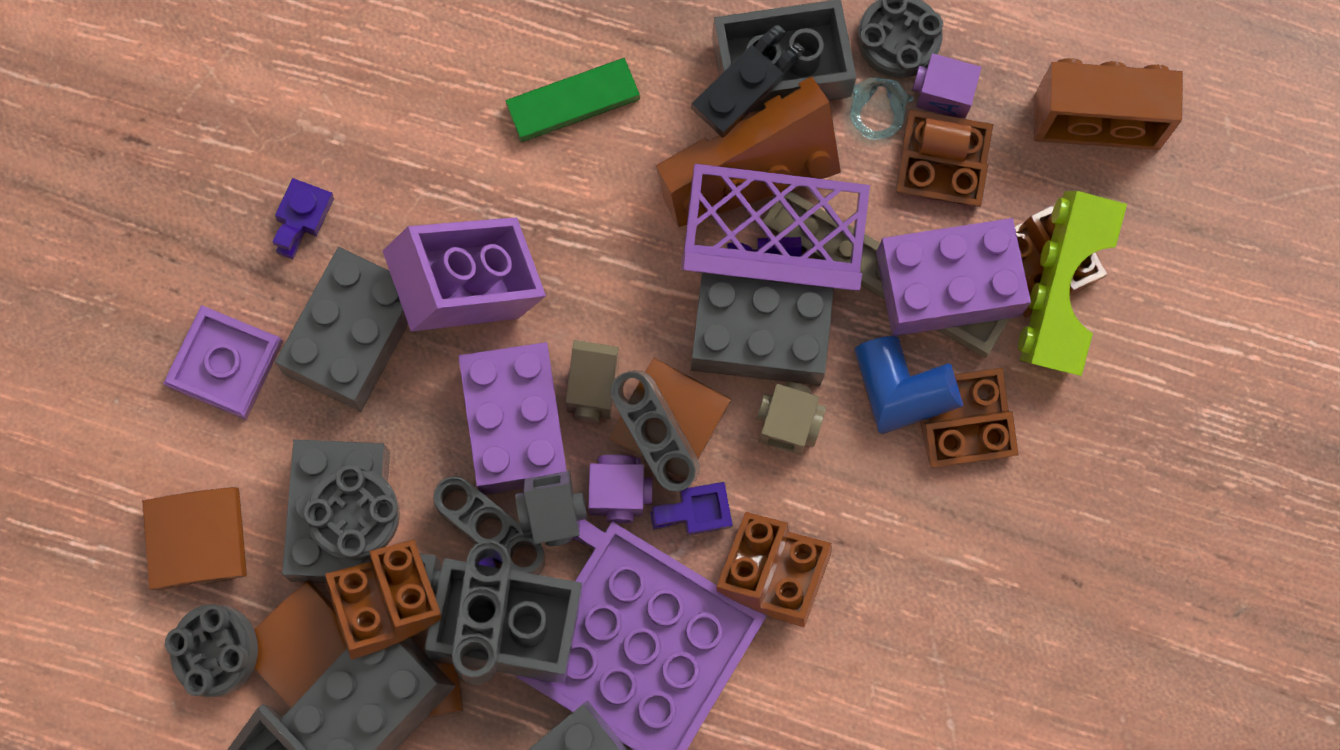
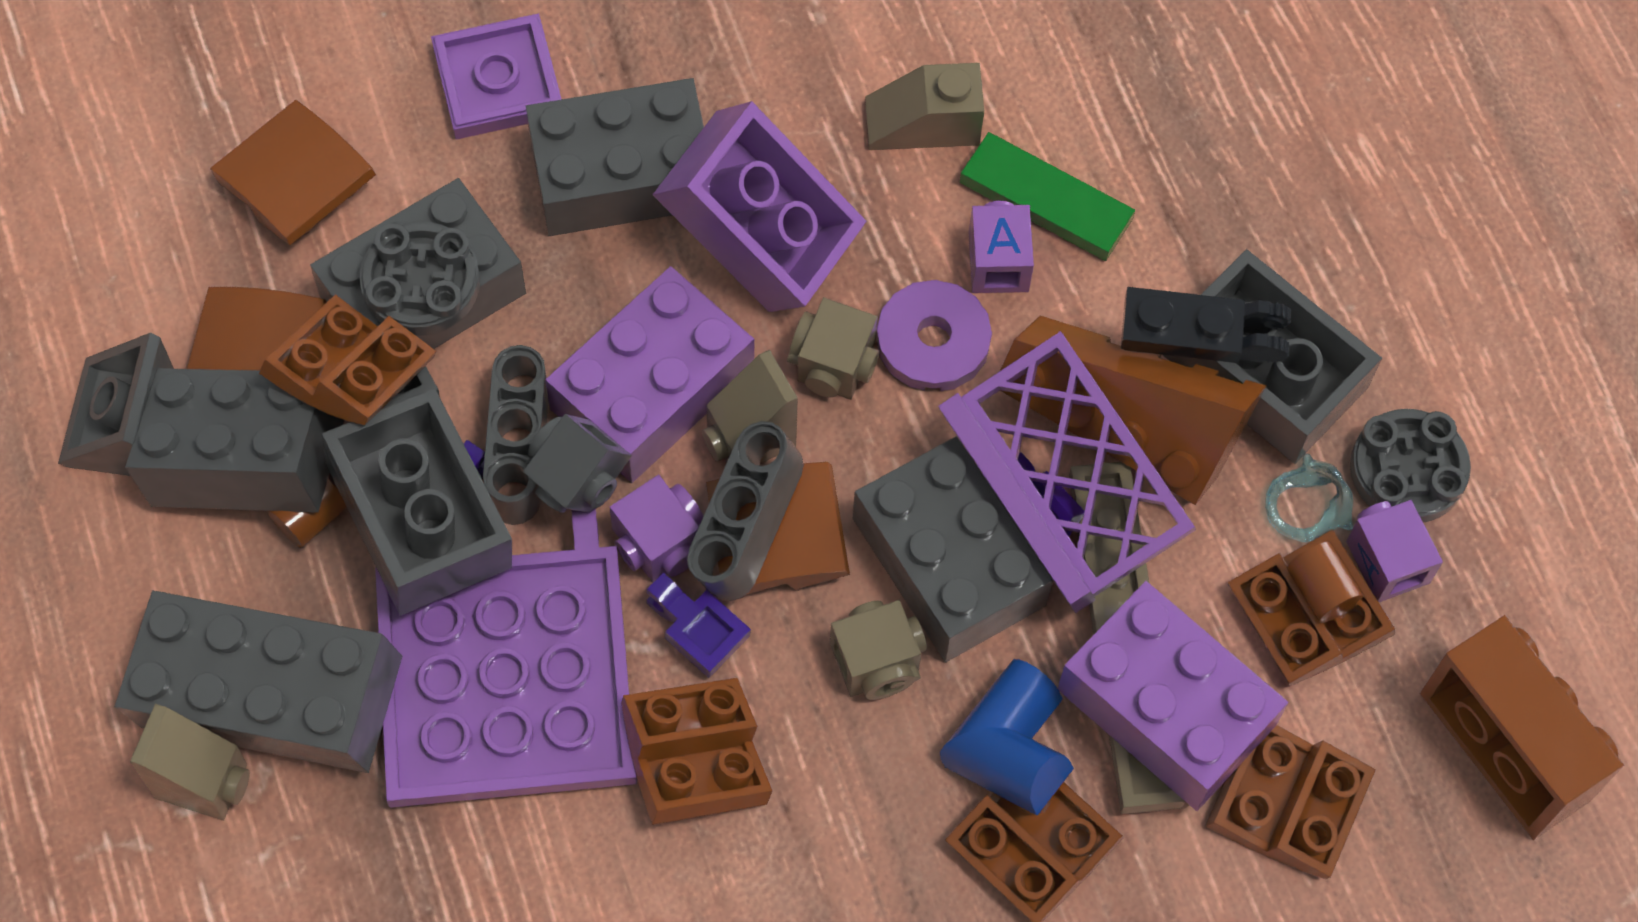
camera: 55 degrees right, 10 degrees down
(213, 650) = (189, 267): dark grey tile -> none
(300, 211) = (710, 33): dark purple plate -> none
(462, 123) = (927, 109): none -> dark tan slope
(477, 590) = (411, 429): dark grey beam -> none
(580, 299) = (834, 349): none -> dark tan brick
(589, 152) = (1000, 248): none -> medium lavender brick
(618, 211) = (941, 306): none -> medium lavender tile
(1081, 228) = (1350, 793): lime arch -> none

